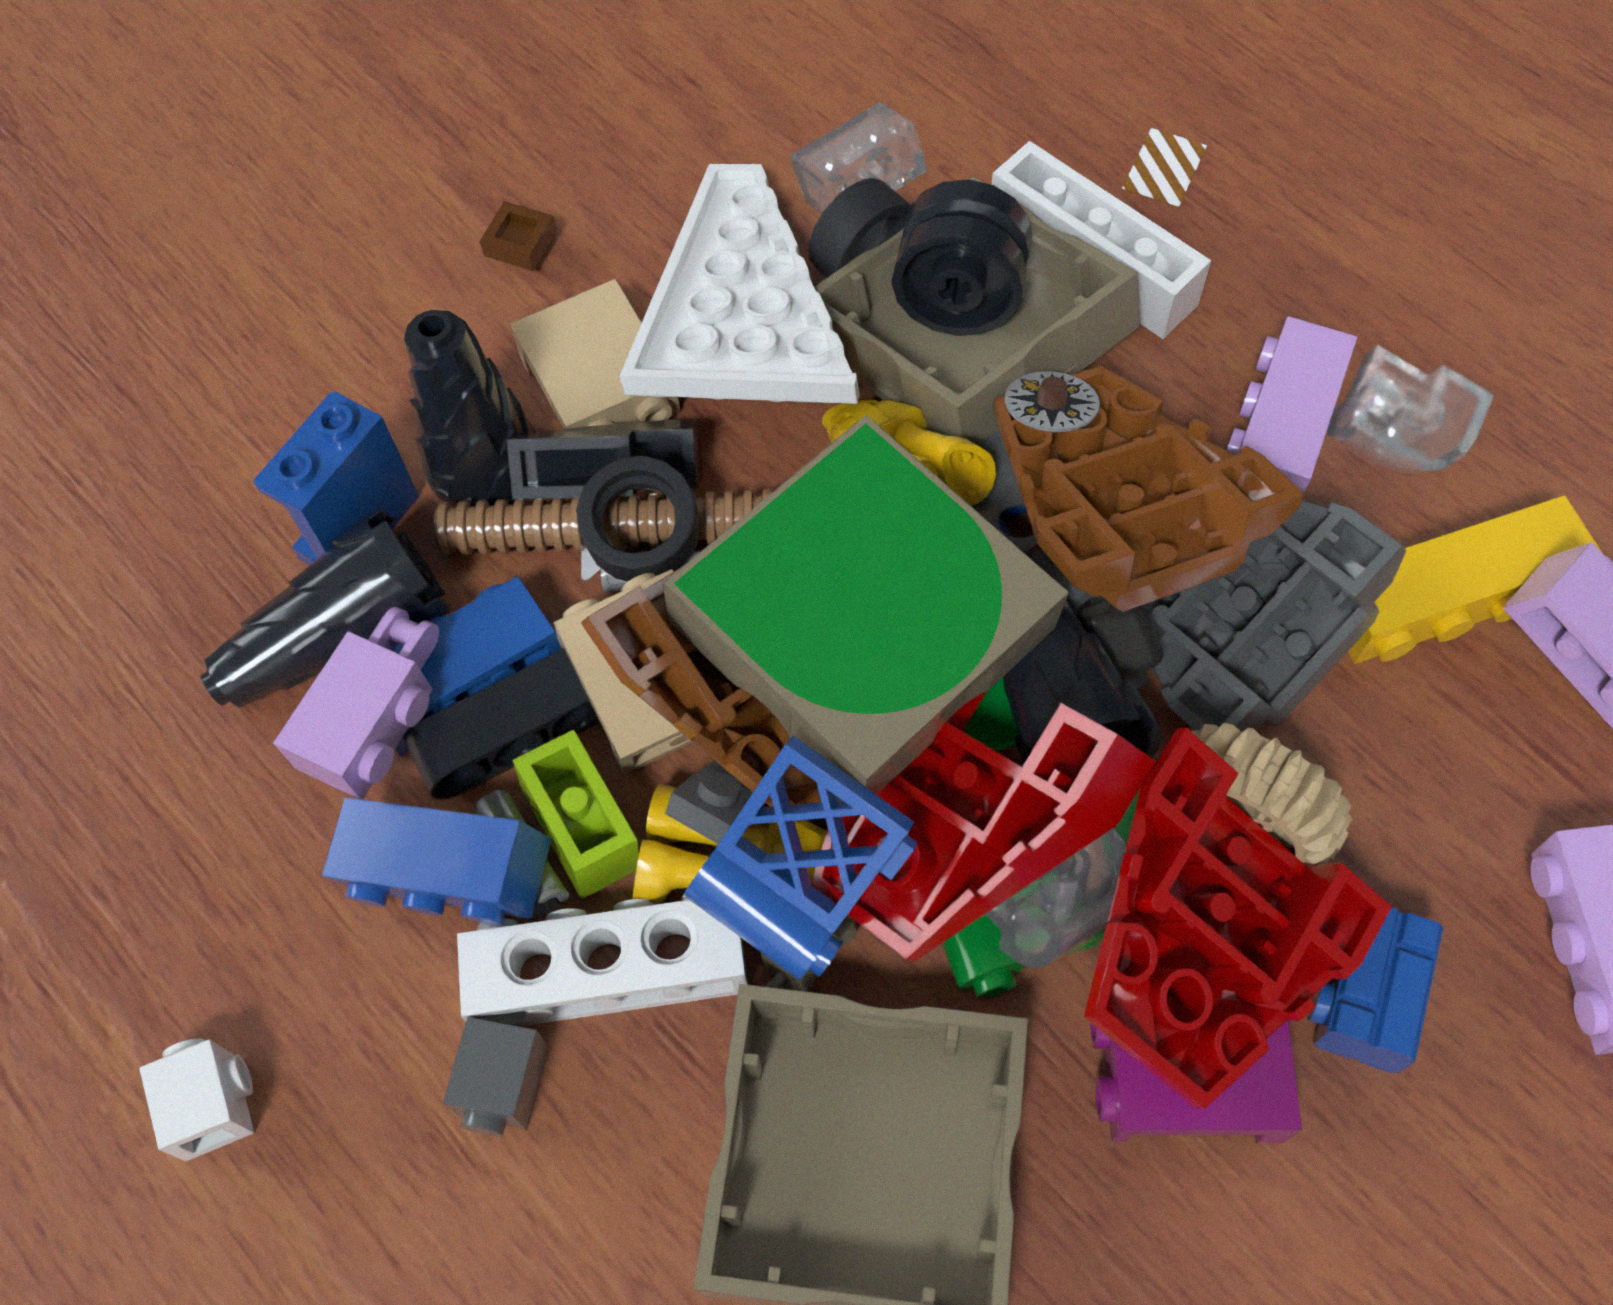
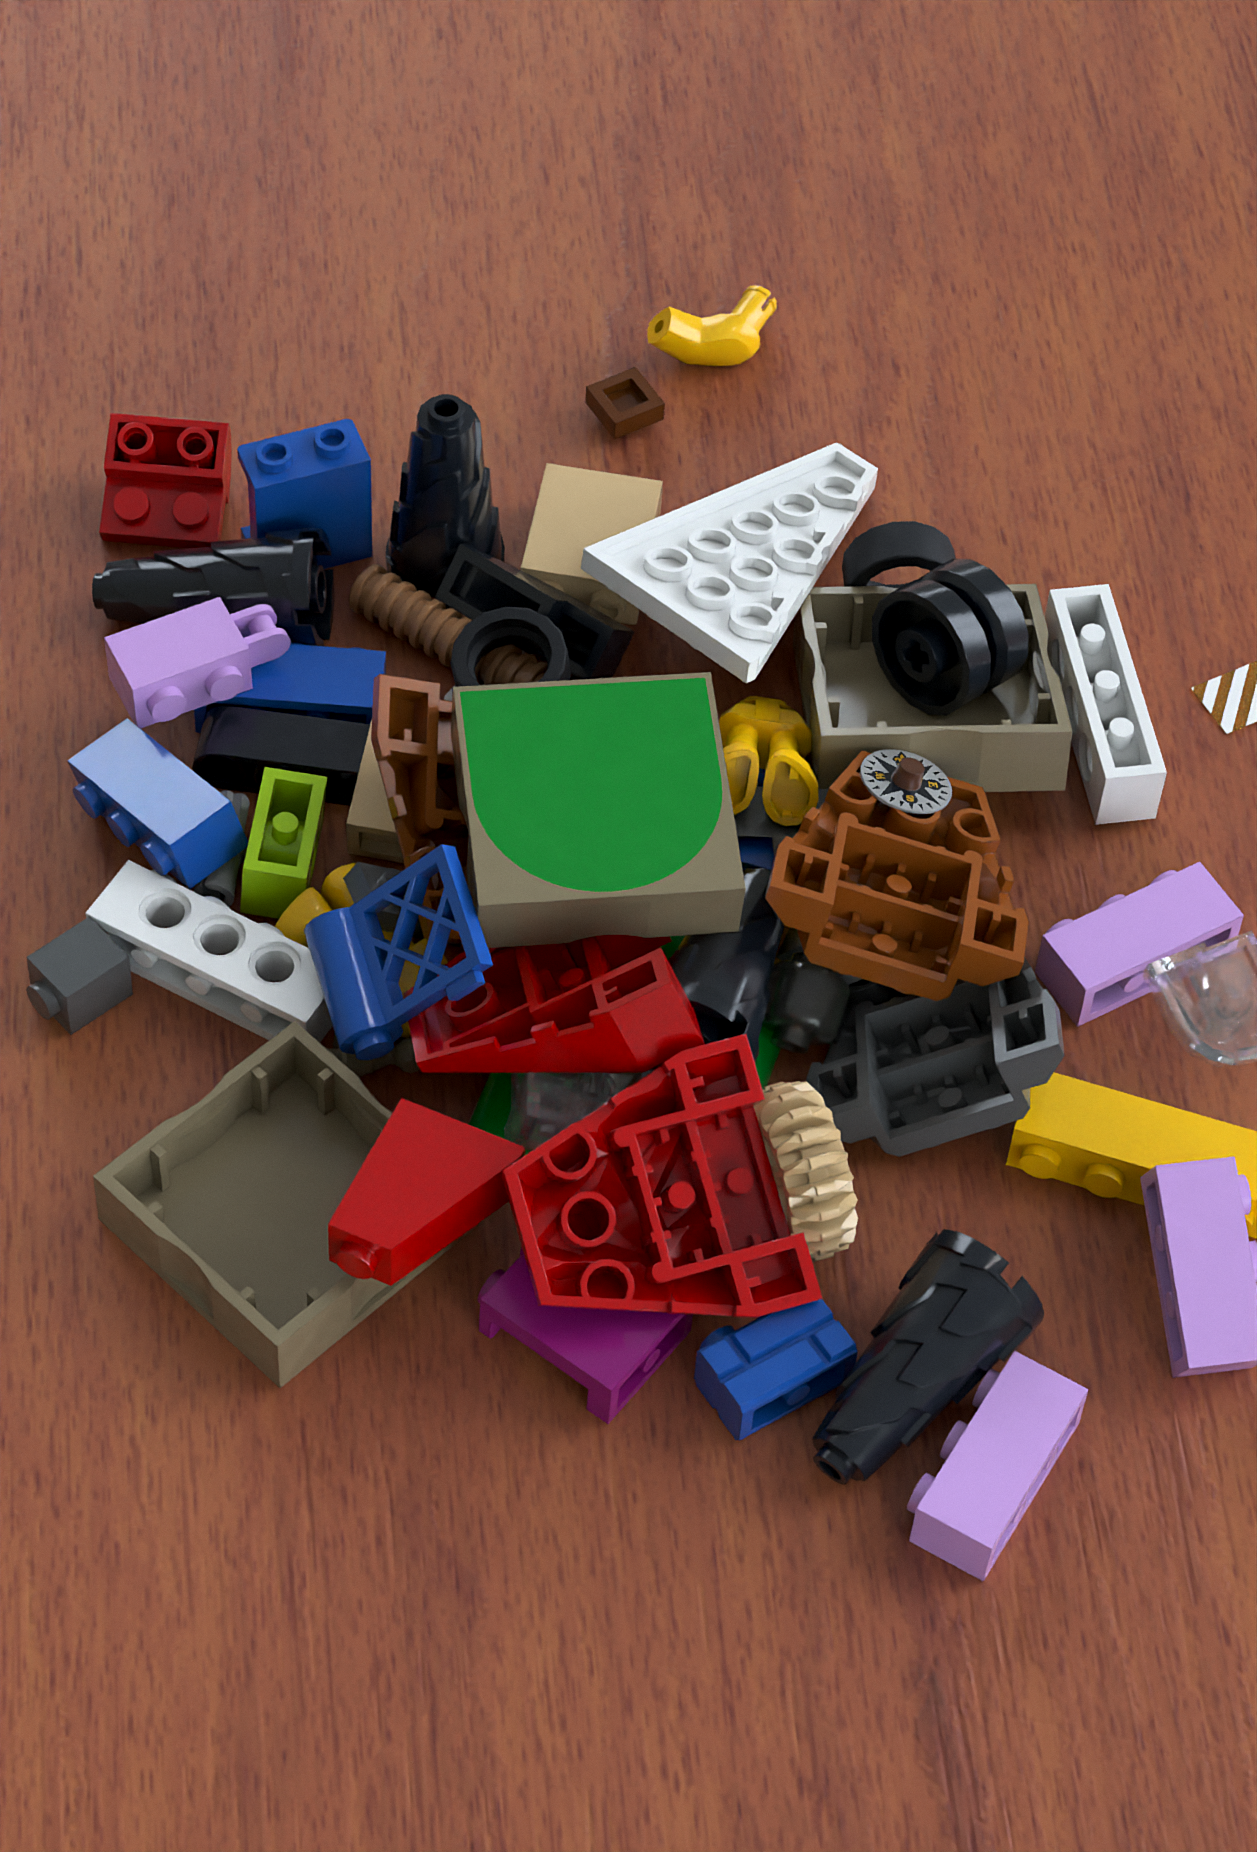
camera: 30 degrees right, 10 degrees down
(193, 550) = (165, 481): none -> red brick
(544, 141) = (717, 338): none -> yellow arm
(869, 145) = (972, 511): clear brick -> none
(1005, 1082) = (417, 1193): none -> red slope
(1492, 886) = (925, 1352): none -> black cone

